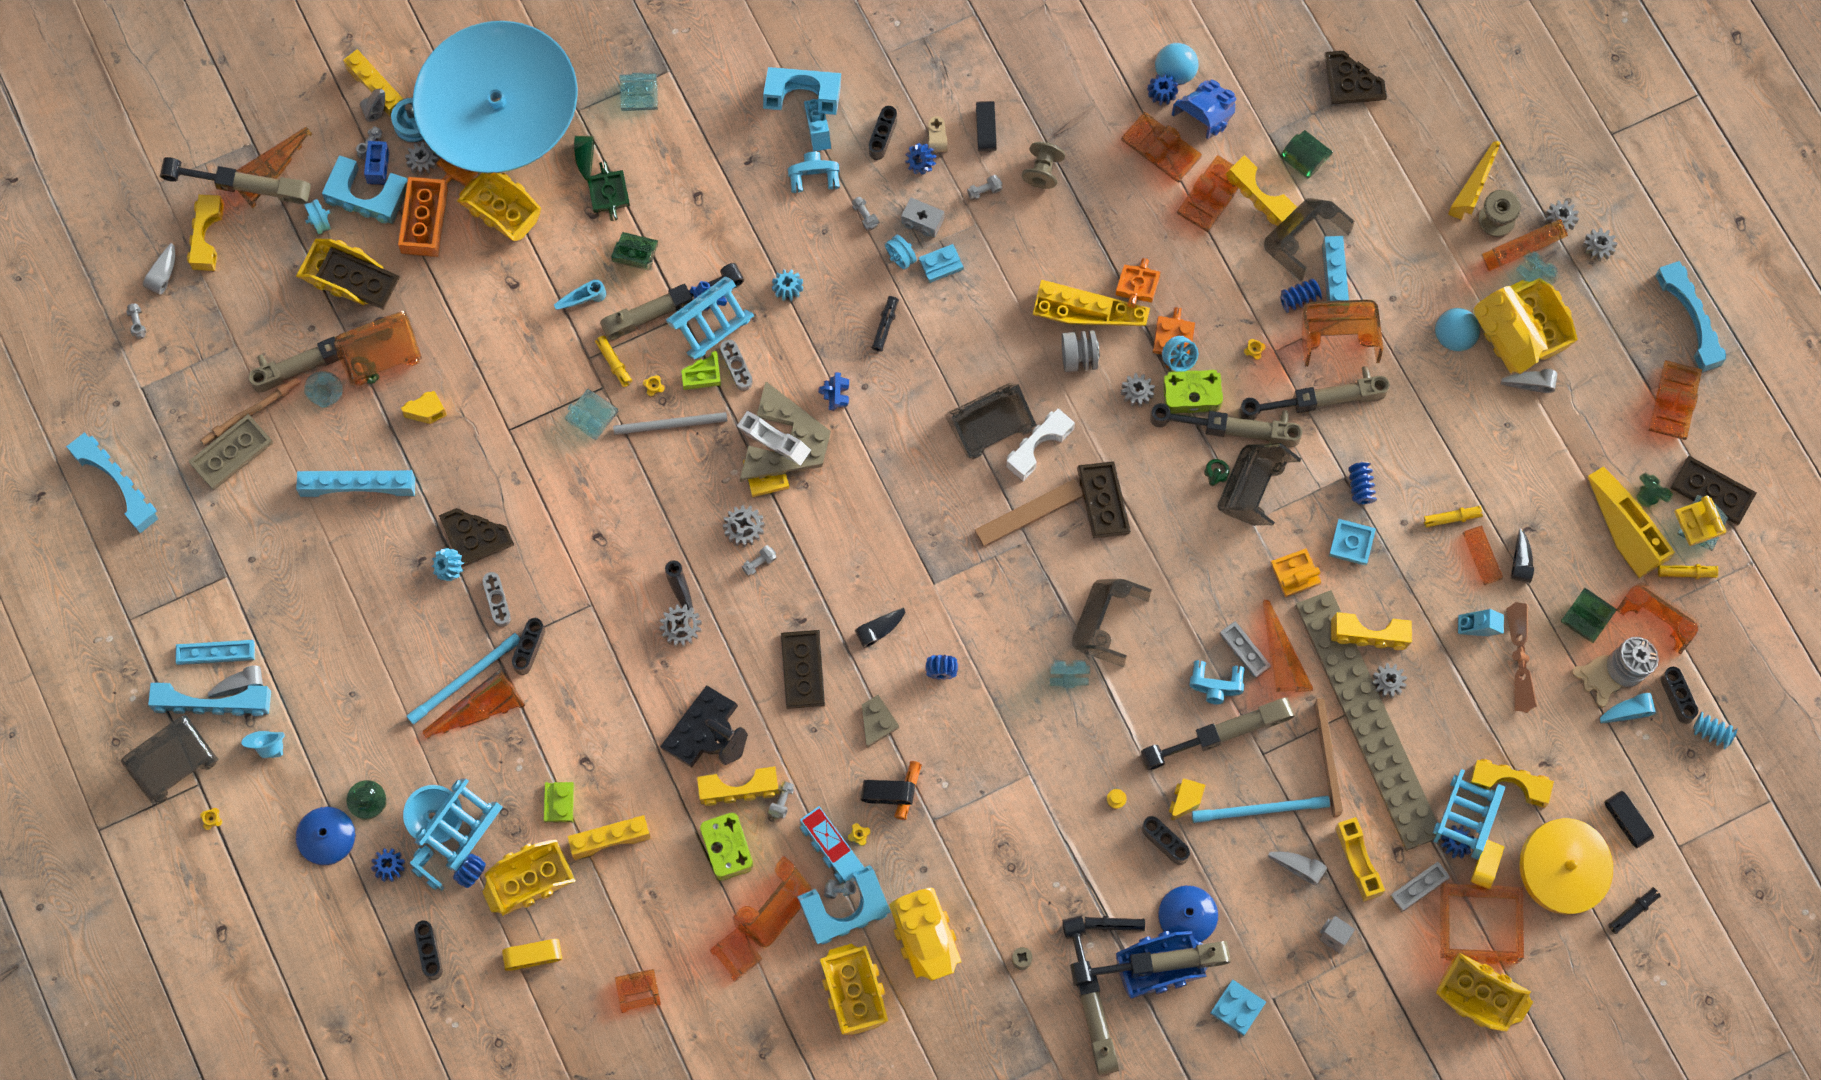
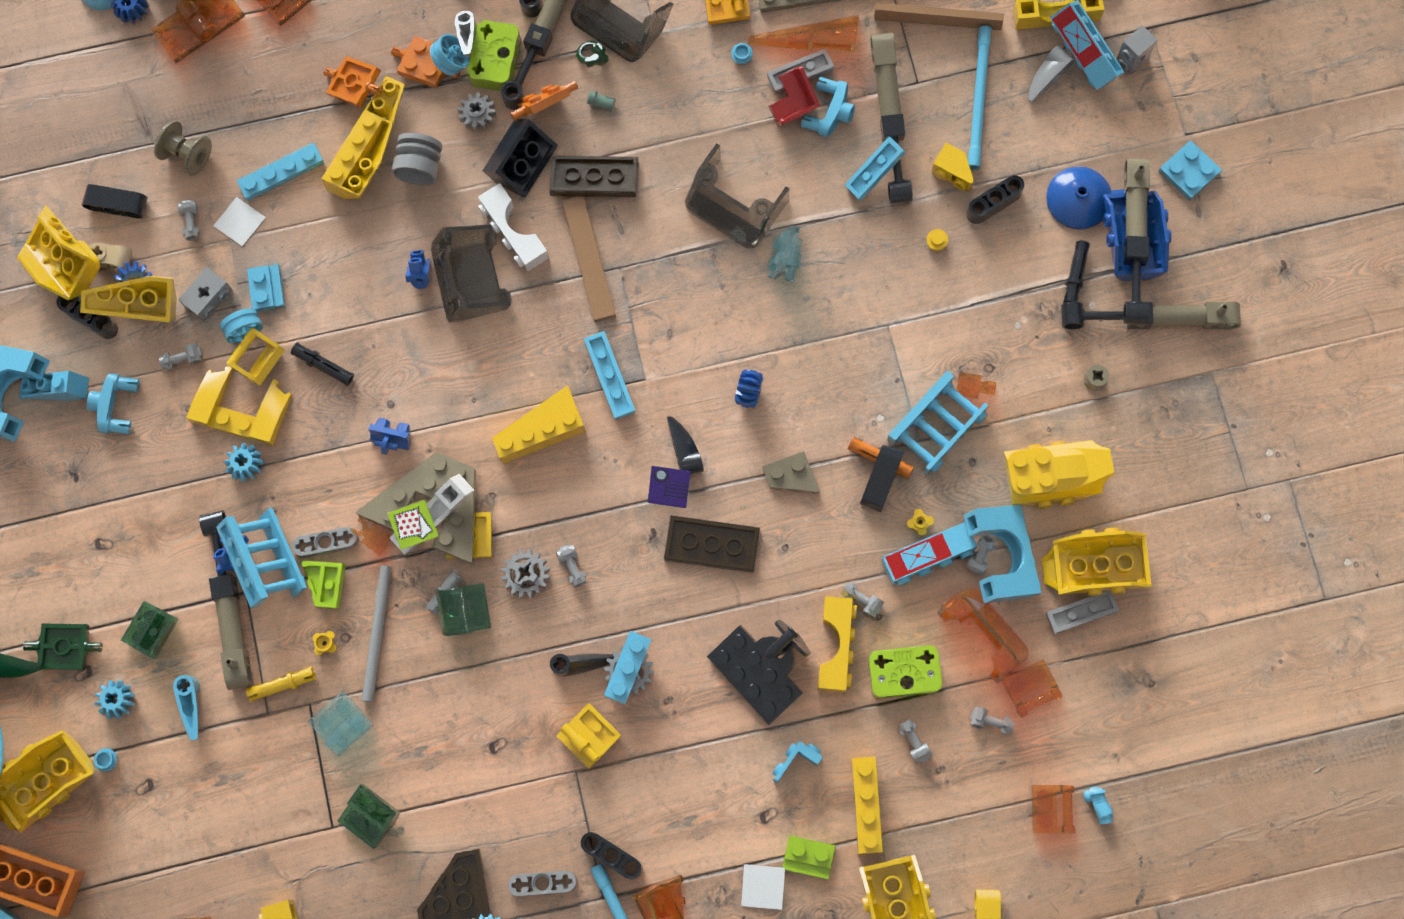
camera: 70 degrees left, 5 degrees up
(522, 453) = (368, 816): none -> clear green brick
(526, 247) = (105, 760): none -> medium azure plate
(527, 770) = (763, 886): none -> white sticker
(574, 247) = (105, 702): none -> medium azure gear
(621, 606) = (589, 735): none -> yellow plate
(643, 783) = (809, 752): none -> medium azure bracket
(648, 1029) = (1101, 806): none -> medium azure arm
(663, 874) = (920, 752): none -> light grey bar
(680, 620) = (627, 667): none -> medium azure plate
(701, 915) = (980, 718): none -> light grey bar
(702, 484) = (463, 609): none -> clear green brick
(714, 466) = (451, 581): none -> light grey axle
(748, 401) = (374, 538): none -> clear orange plate
(760, 425) = (412, 524): none -> sticker
(809, 983) = (1082, 612): none -> light grey plate
(820, 291) = (263, 428): none -> yellow wedge
(842, 622) = (669, 486): none -> dark purple sticker
(872, 511) = (540, 428): none -> yellow wedge
(873, 278) = (265, 361): none -> yellow tile
(901, 165) = (140, 298): none -> yellow wedge
(920, 94) = (57, 258): none -> yellow slope
(928, 553) = (609, 375): none -> medium azure plate
(965, 820) = (916, 418): none -> medium azure fence
(983, 377) = (418, 270): none -> blue hips
(990, 854) = (970, 385): none -> clear orange plate
(994, 227) = (239, 221): none -> white sticker
(1045, 247) = (280, 171): none -> medium azure plate
(1104, 435) = (520, 157): none -> black slope
(1156, 437) = (549, 96): none -> orange plate
(1166, 730) = (875, 168): none -> medium azure plate
(1174, 489) = (601, 101): none -> sand green pin
(1206, 361) = (466, 31): none -> piece
(1215, 653) = (799, 97): none -> red panel
(1249, 597) = (741, 53): none -> medium azure plate
(1329, 889) = (1086, 45): none -> medium azure brick

